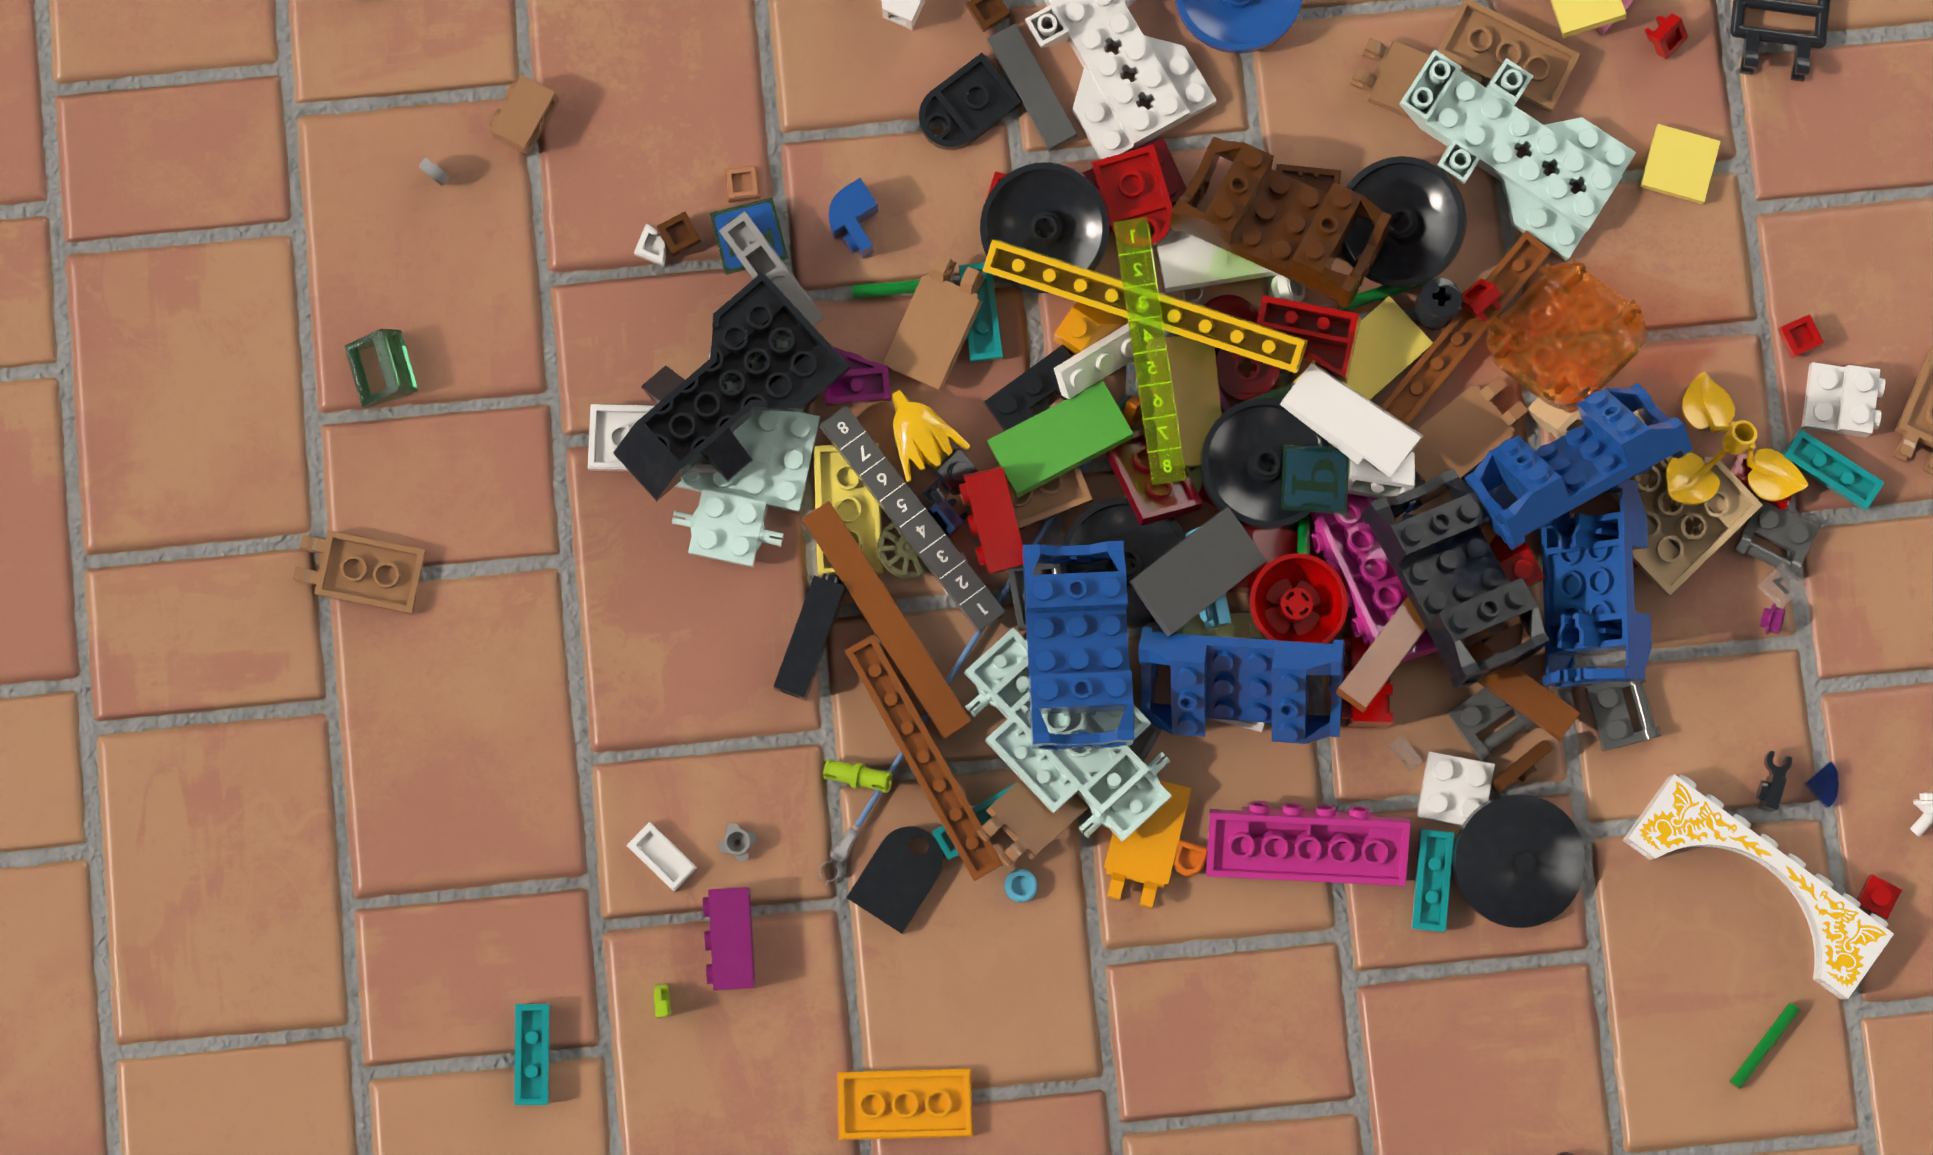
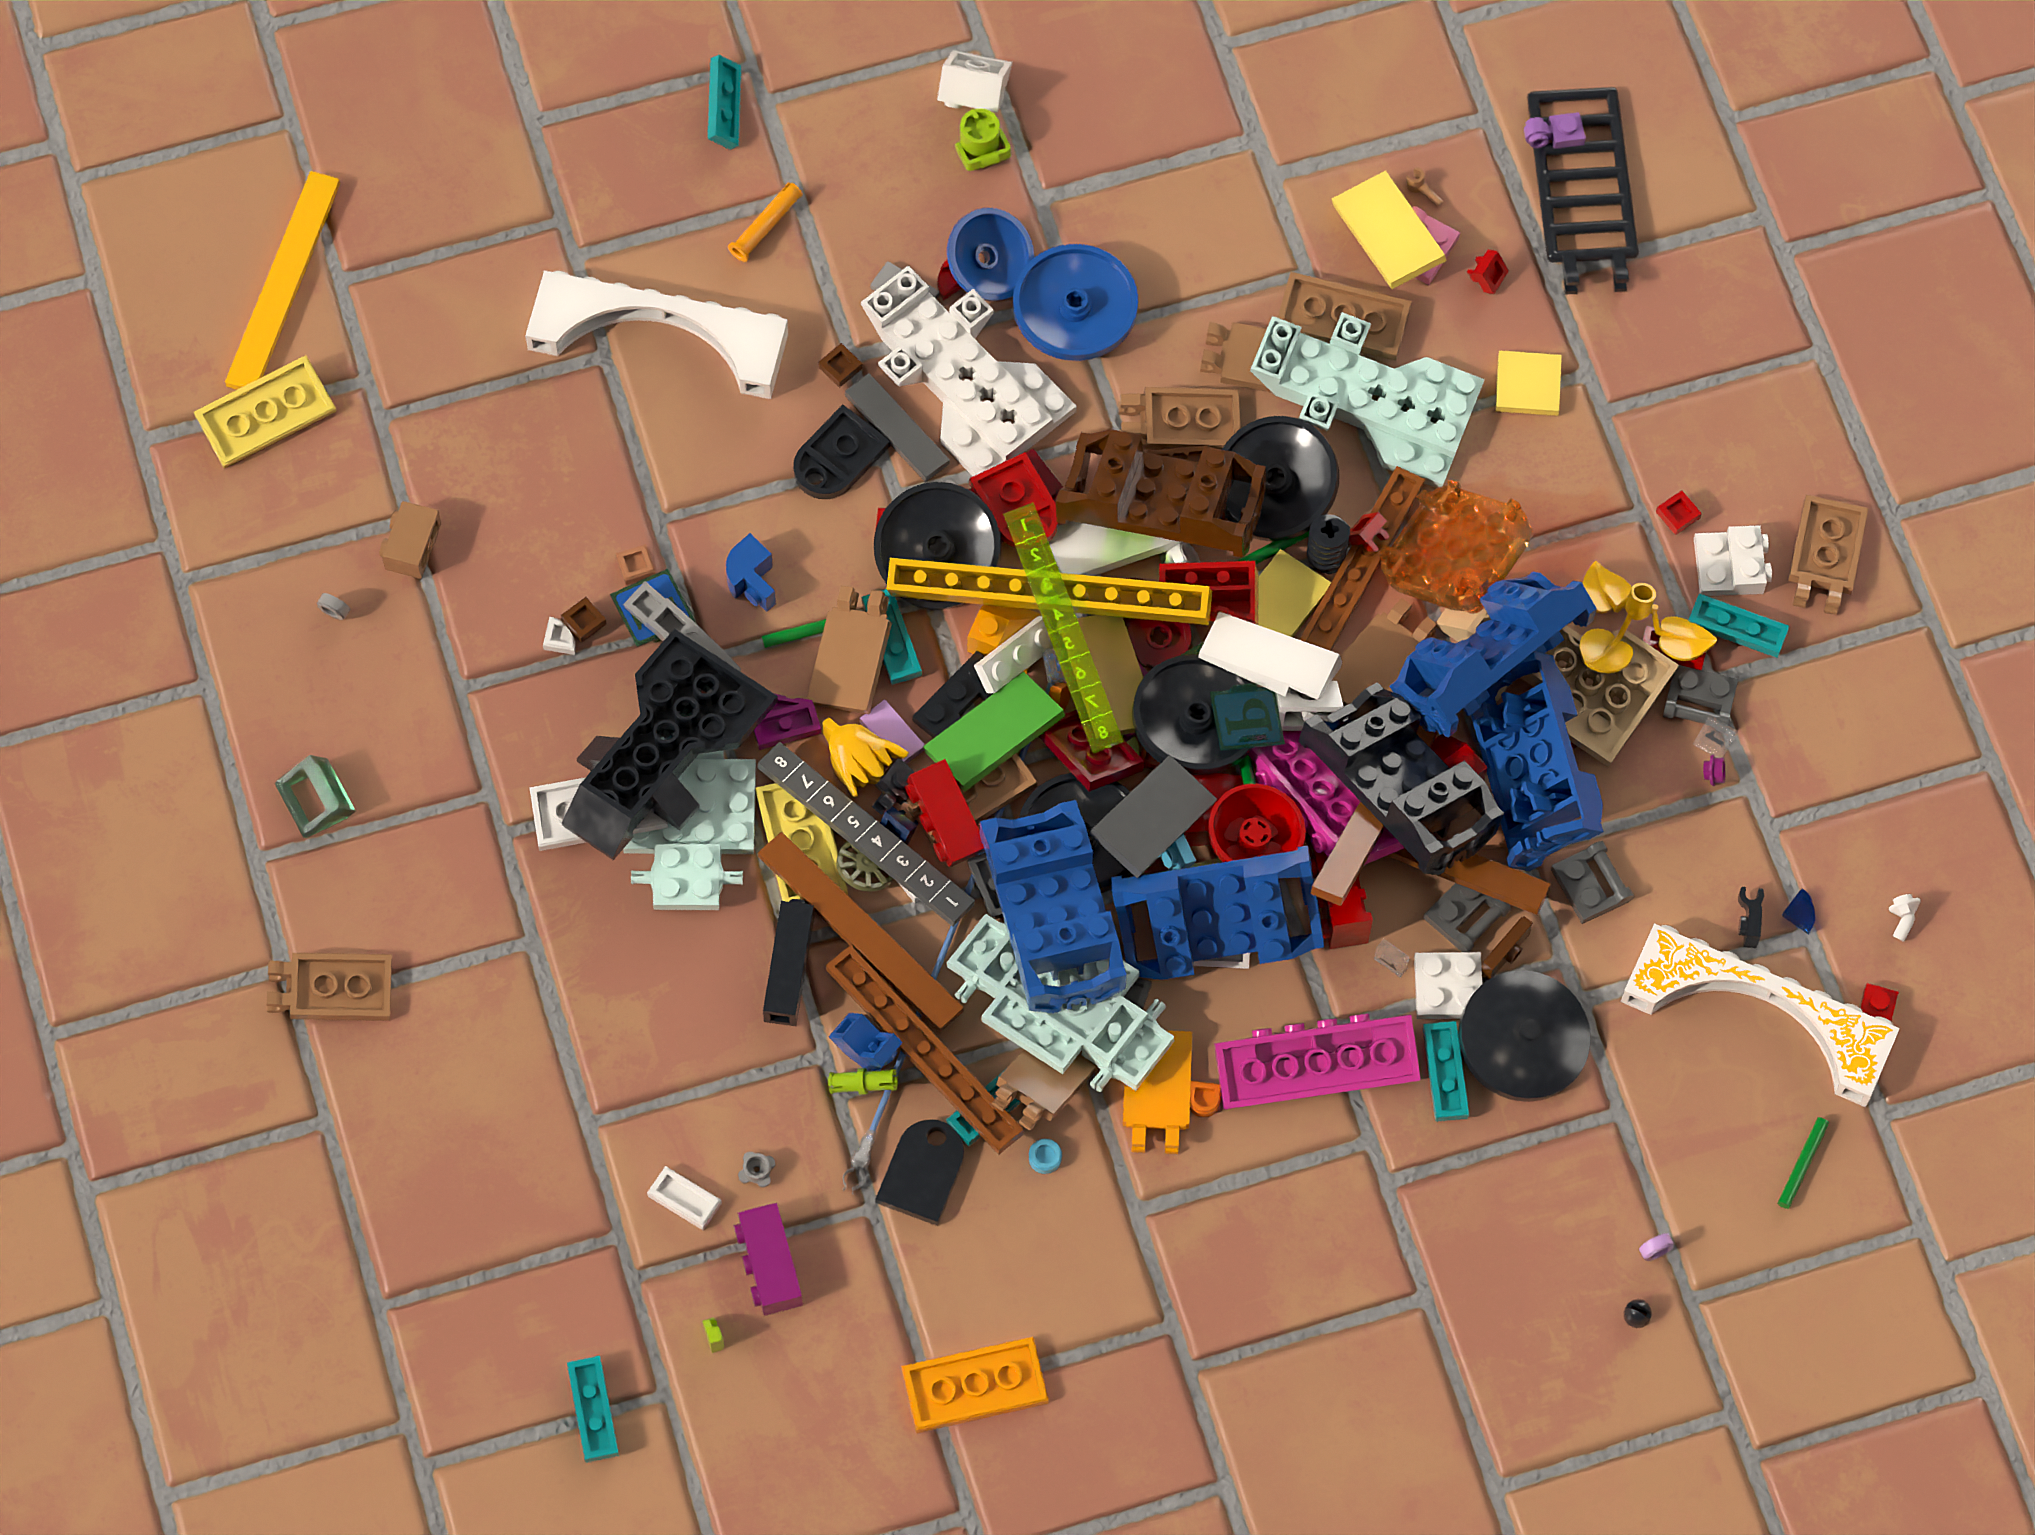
camera: 15 degrees left, 15 degrees down
(868, 737) = (864, 1042): none -> blue brick
(961, 413) = (890, 726): none -> lavender tile
(1320, 134) = (1182, 416): none -> medium nougat tile
(1599, 1105) = (1656, 1247): none -> lavender tile

